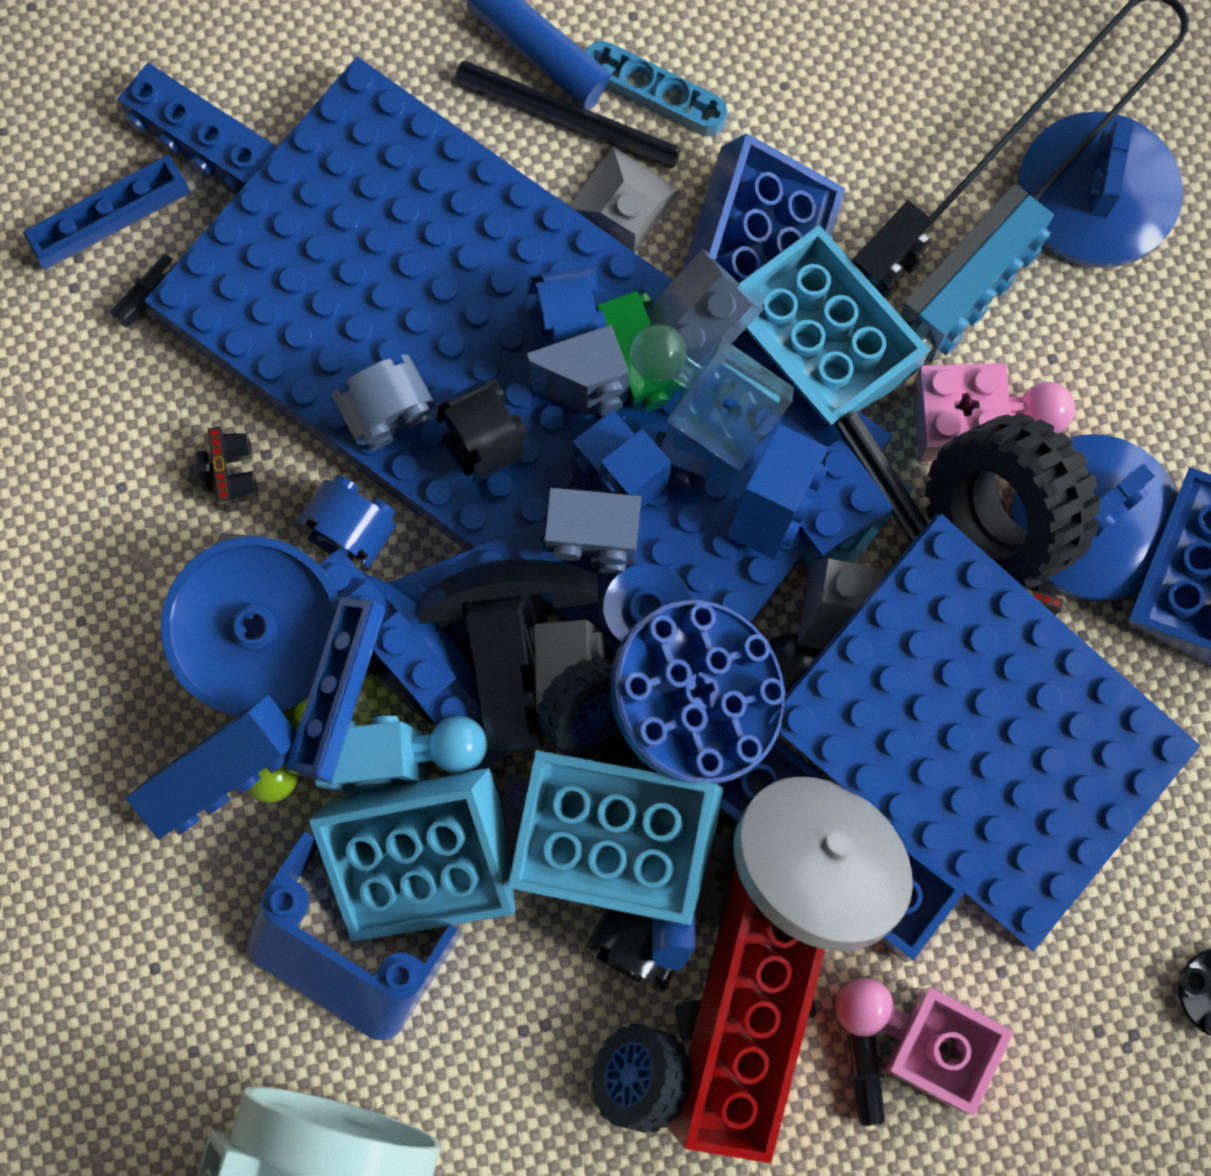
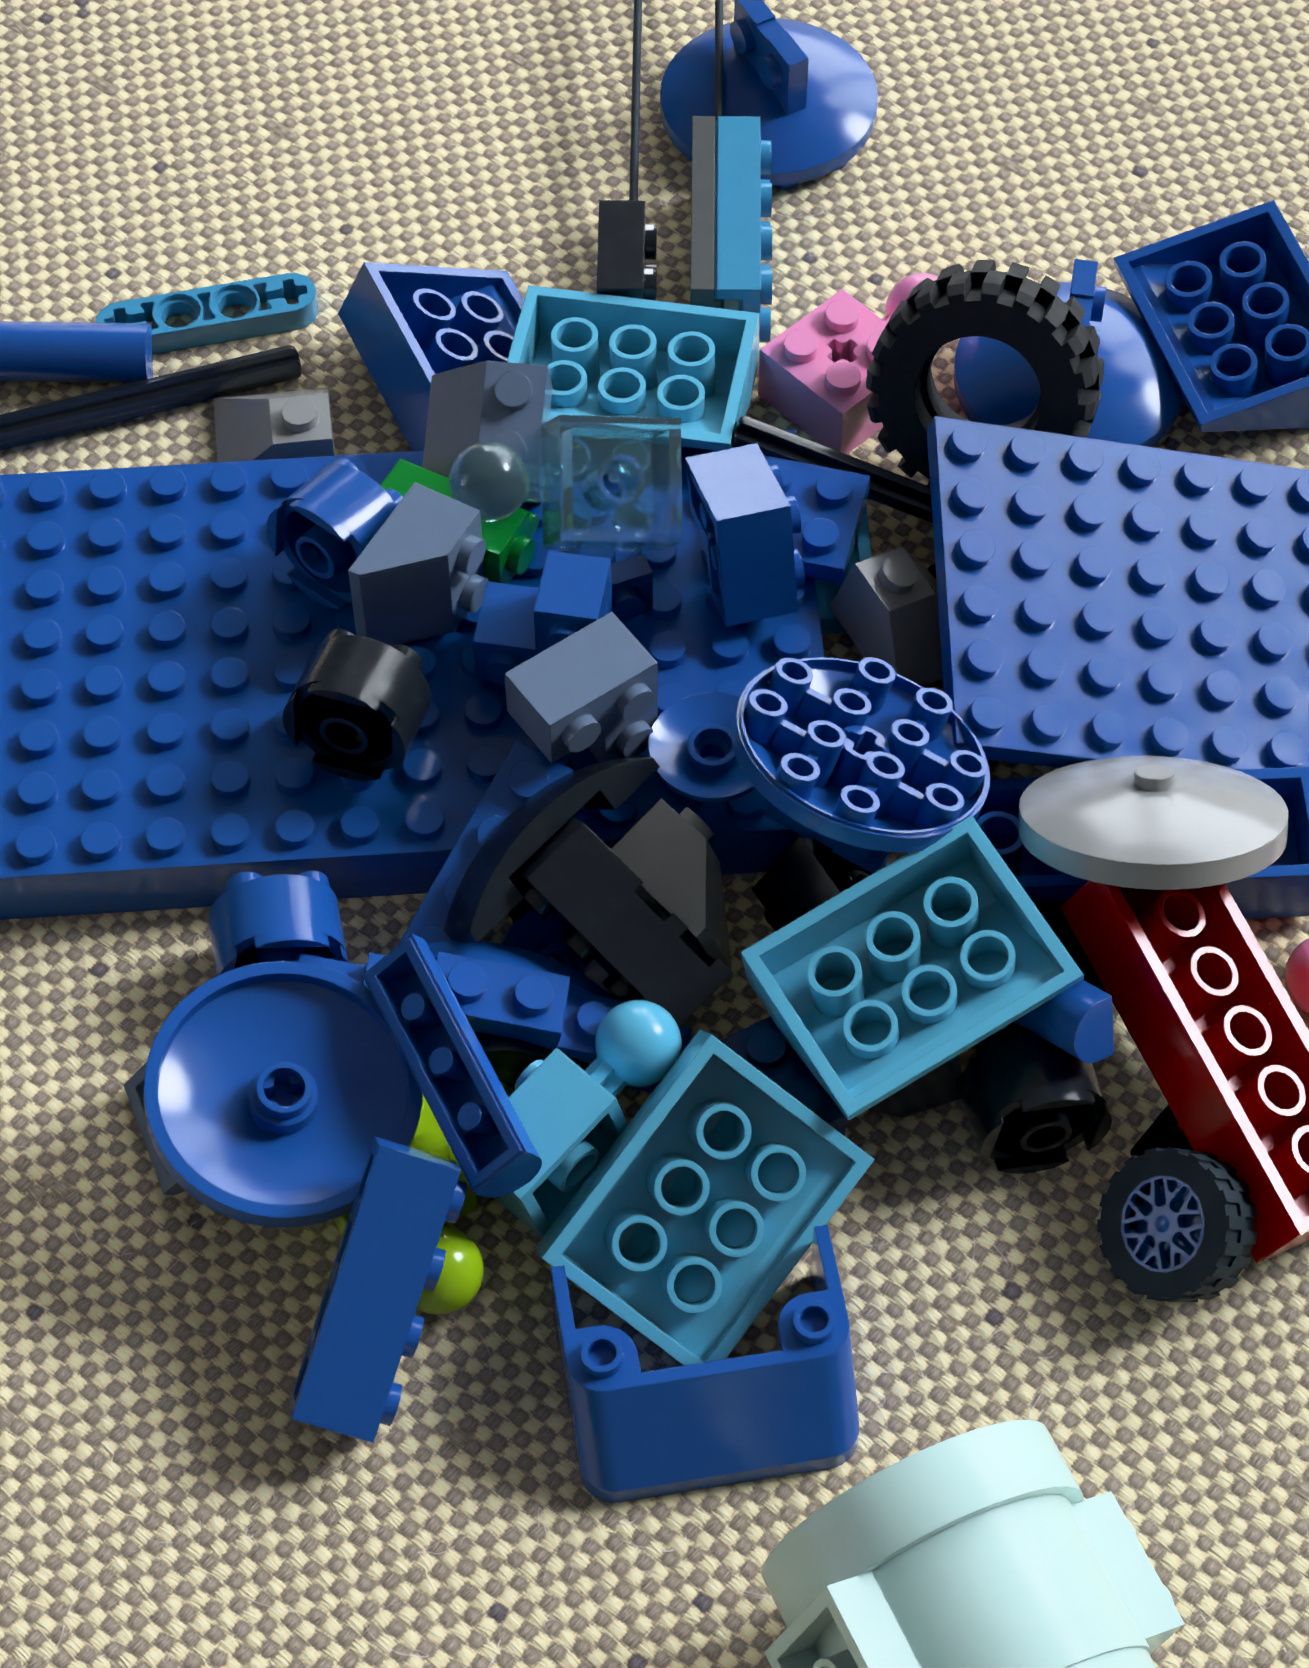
camera: 40 degrees left, 20 degrees down
(229, 487) = (60, 1015): black hips -> none
(384, 402) = (219, 756): sand blue brick -> none
(579, 710) = (744, 884): black wheel -> none

